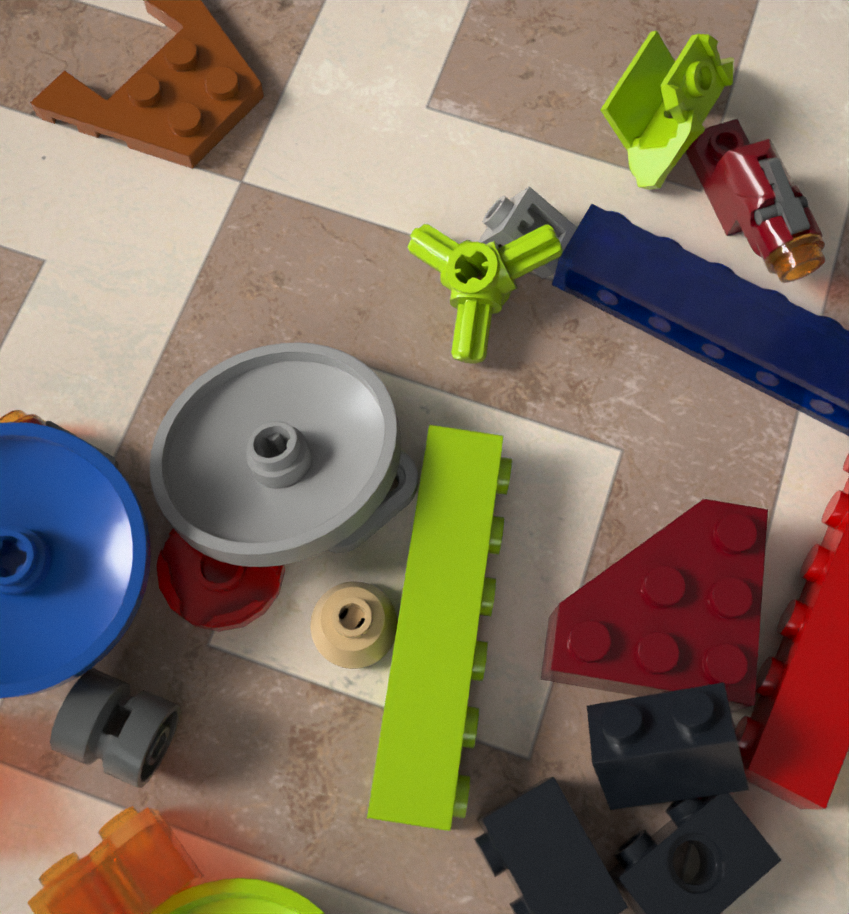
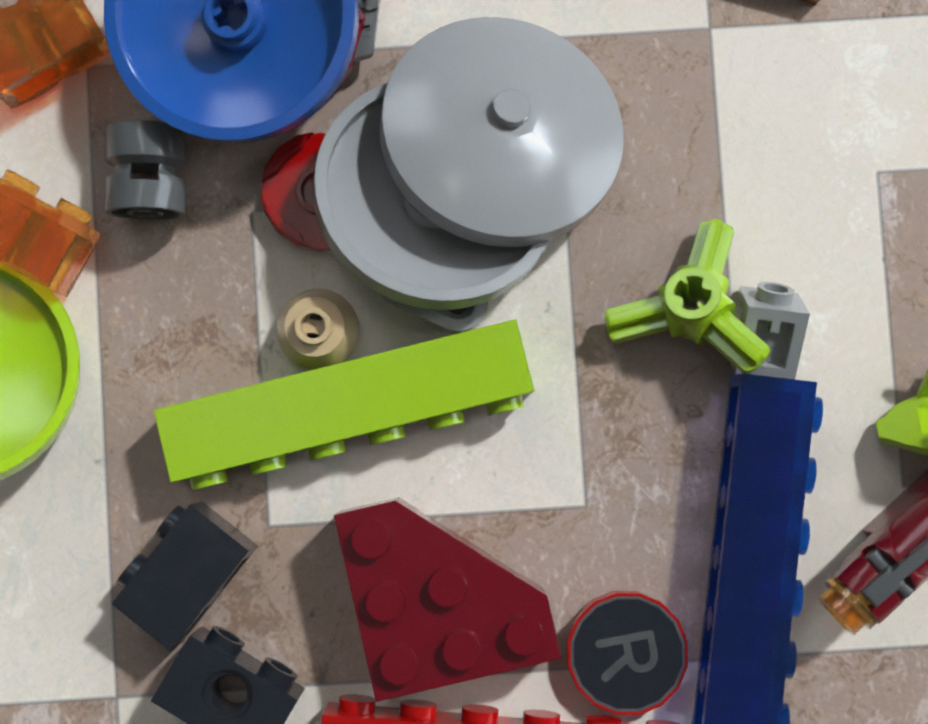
camera: 70 degrees right, 15 degrees up
(247, 375) = (500, 131): none -> light grey dish
(666, 747) = (311, 638): black brick -> none
(773, 463) = (626, 652): none -> black tile

